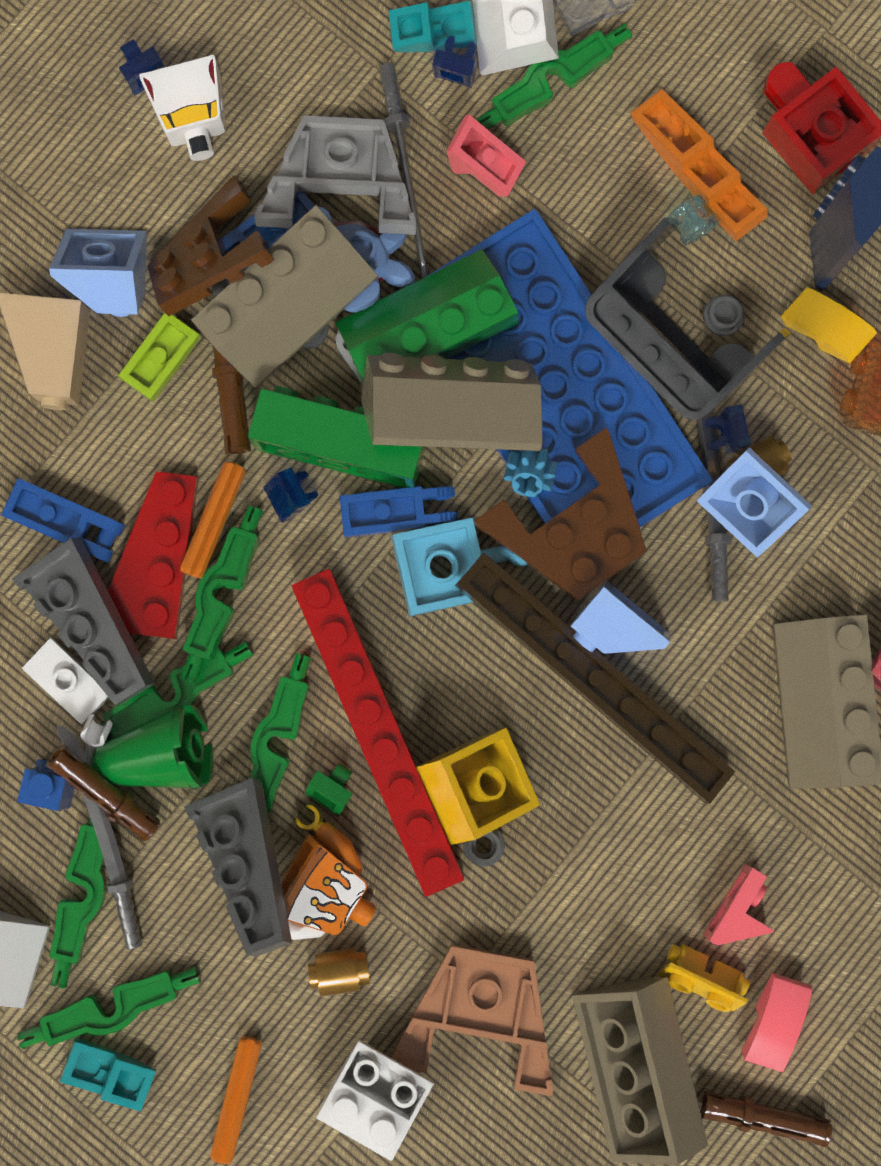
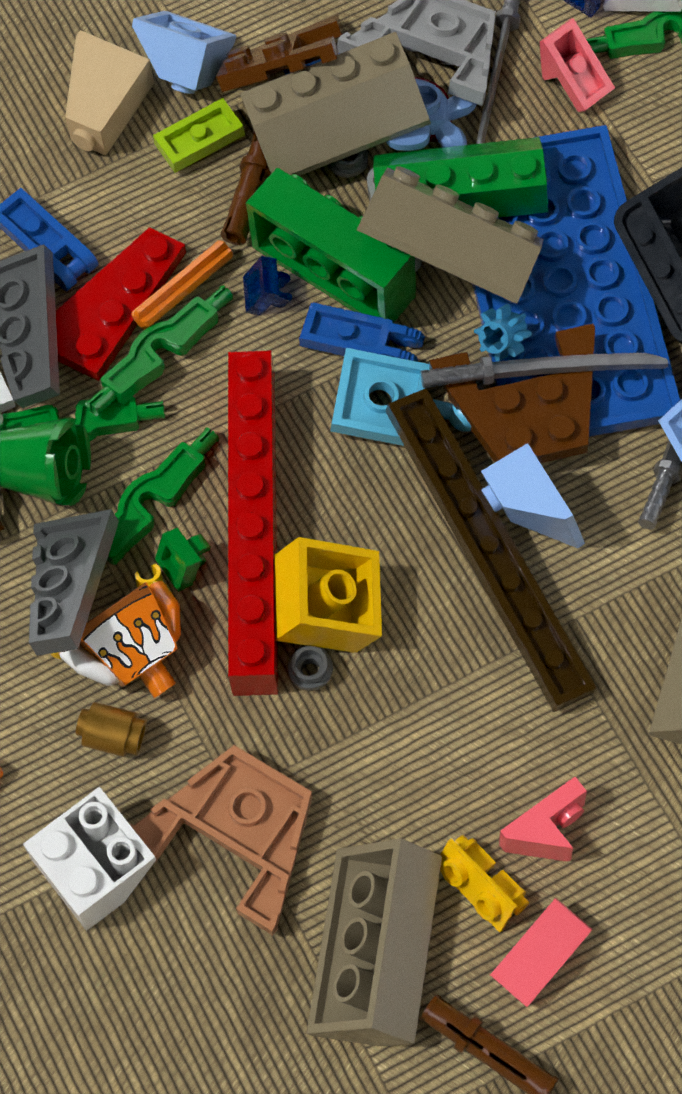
camera: 25 degrees right, 20 degrees down
(533, 513) = (489, 370): none -> flat silver sword

